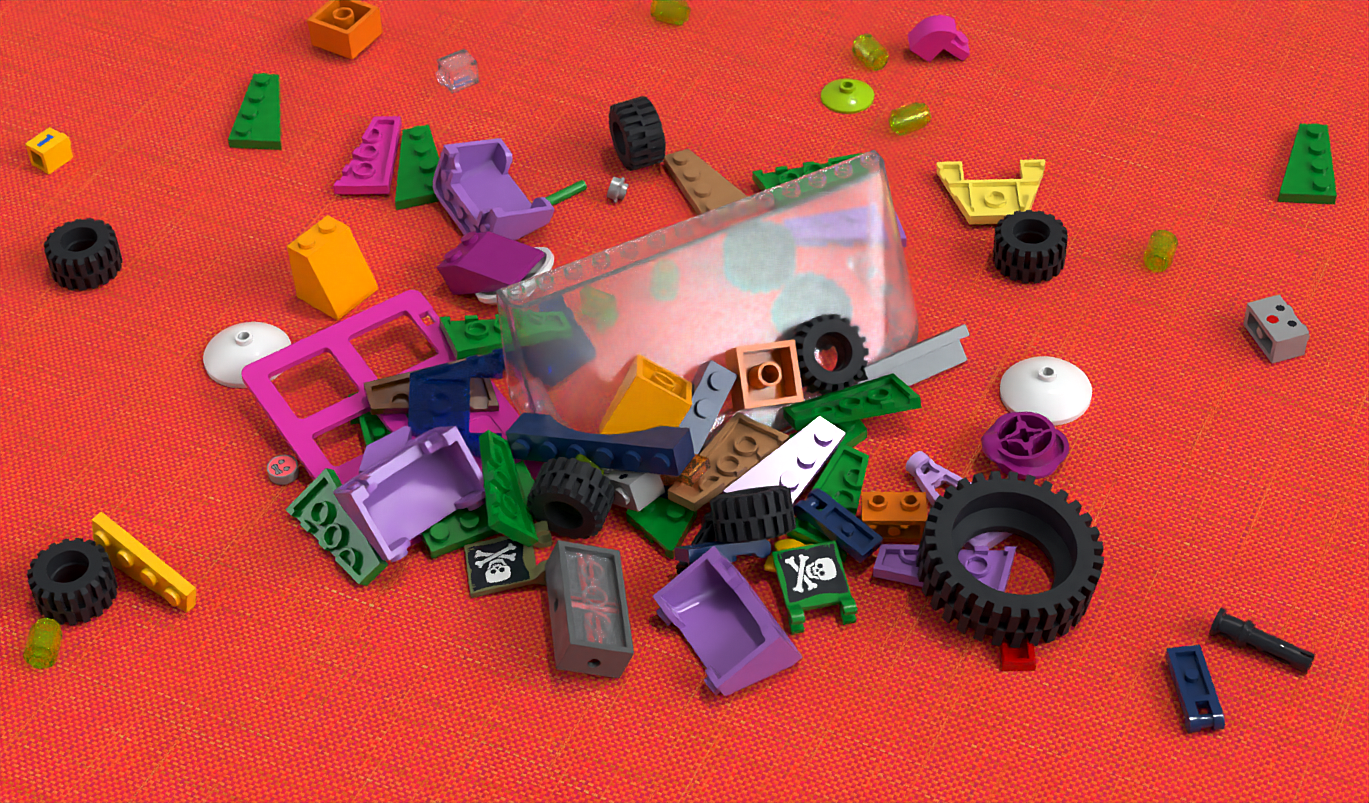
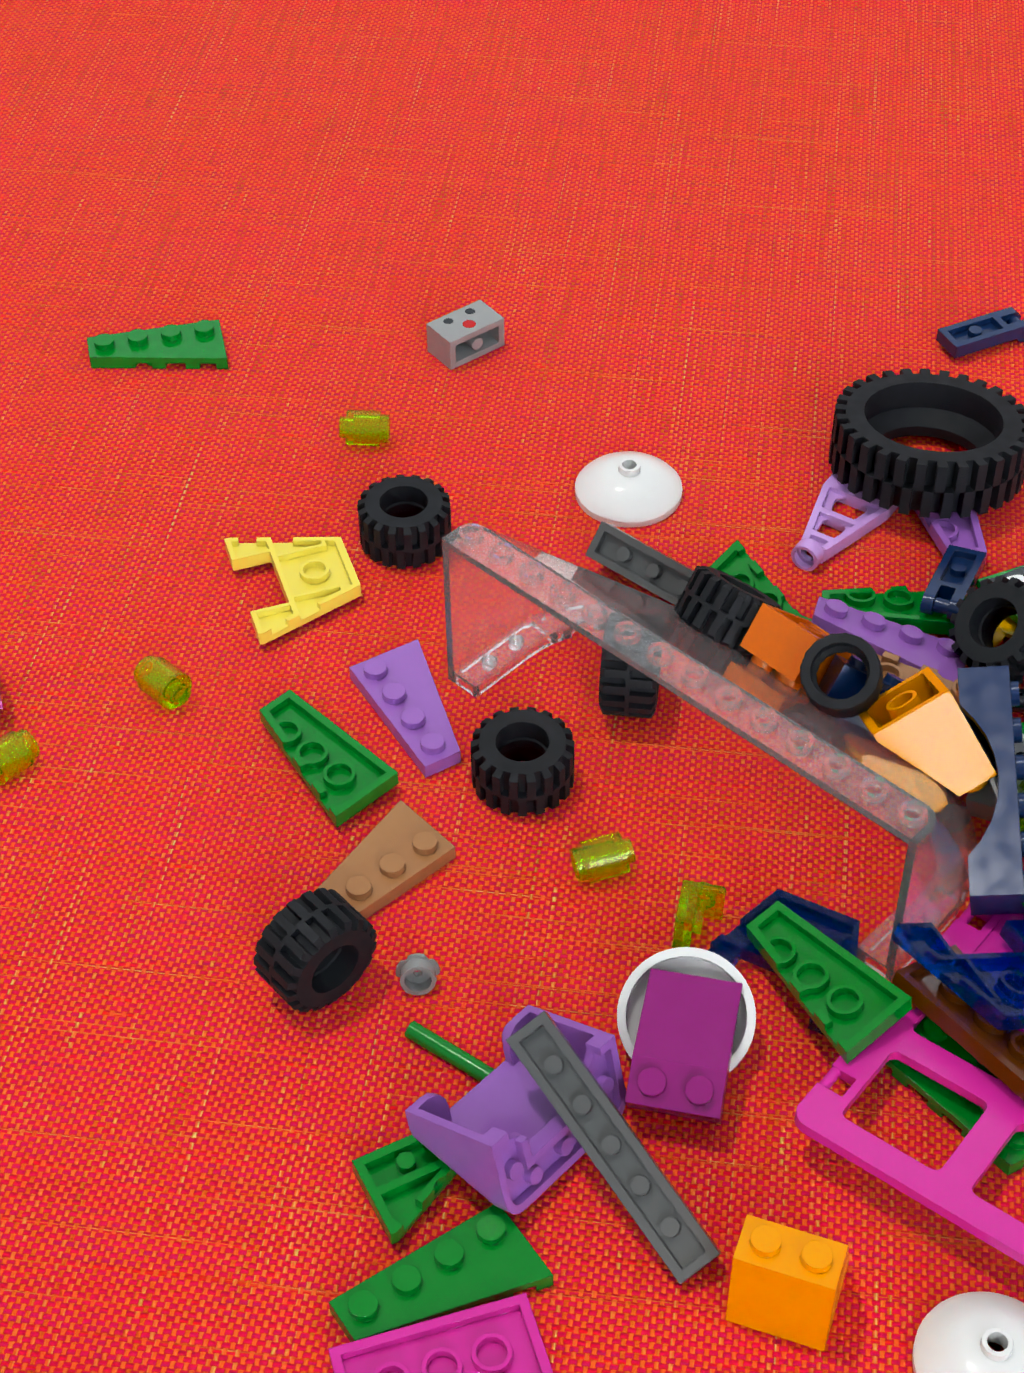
camera: 110 degrees left, 0 degrees up
(432, 220) = (614, 1147): none -> dark grey plate
(457, 71) = (166, 1306): clear brick -> none
(701, 356) = (827, 647): none -> black tyre
(847, 96) = (105, 773): lime dish -> none
(895, 514) = (900, 552): orange brick -> none
(1025, 444) = (740, 474): magenta piece -> none
(1247, 635) = (901, 309): black pin -> none

